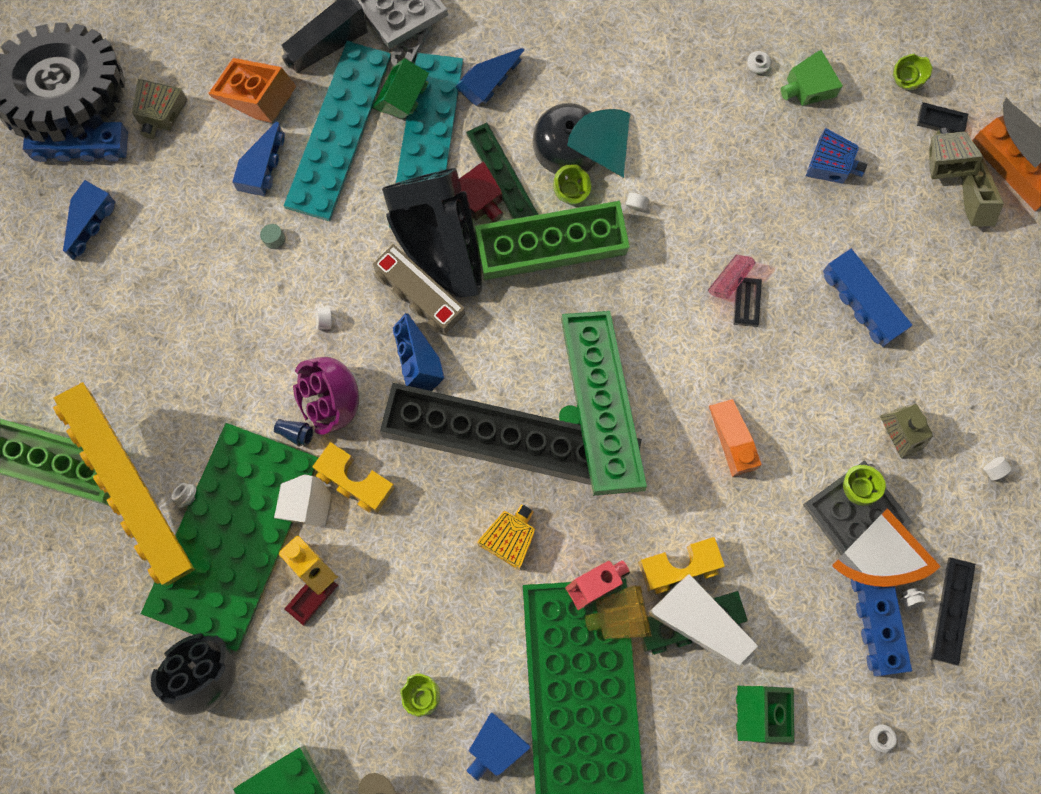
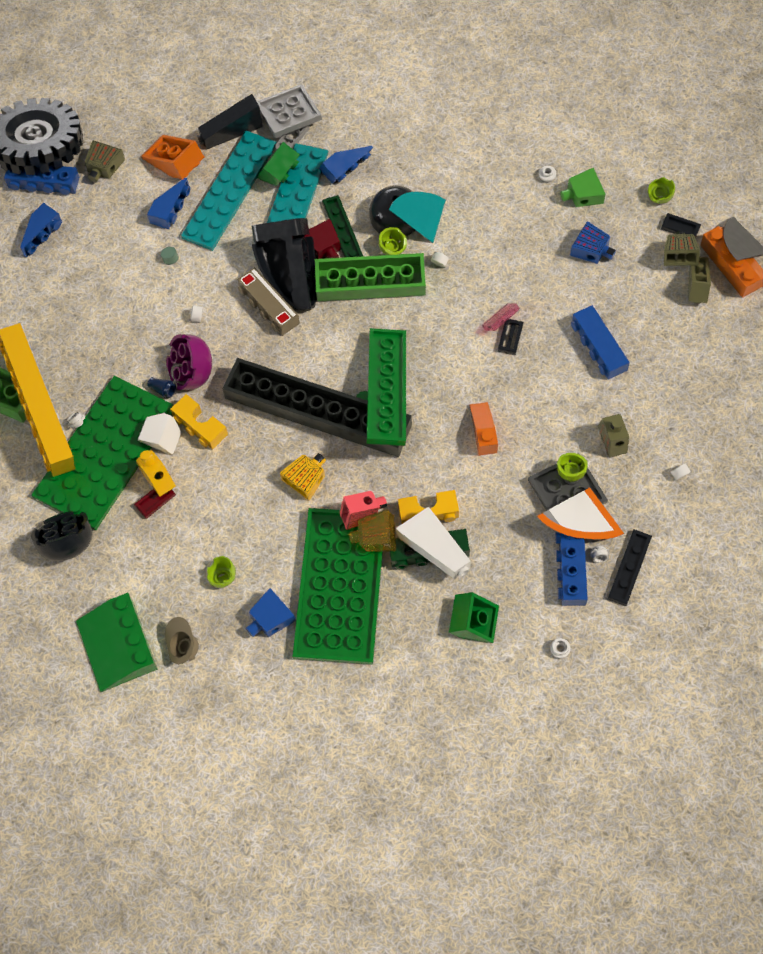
camera: 15 degrees right, 10 degrees down
(418, 359) = (258, 344): blue slope -> none

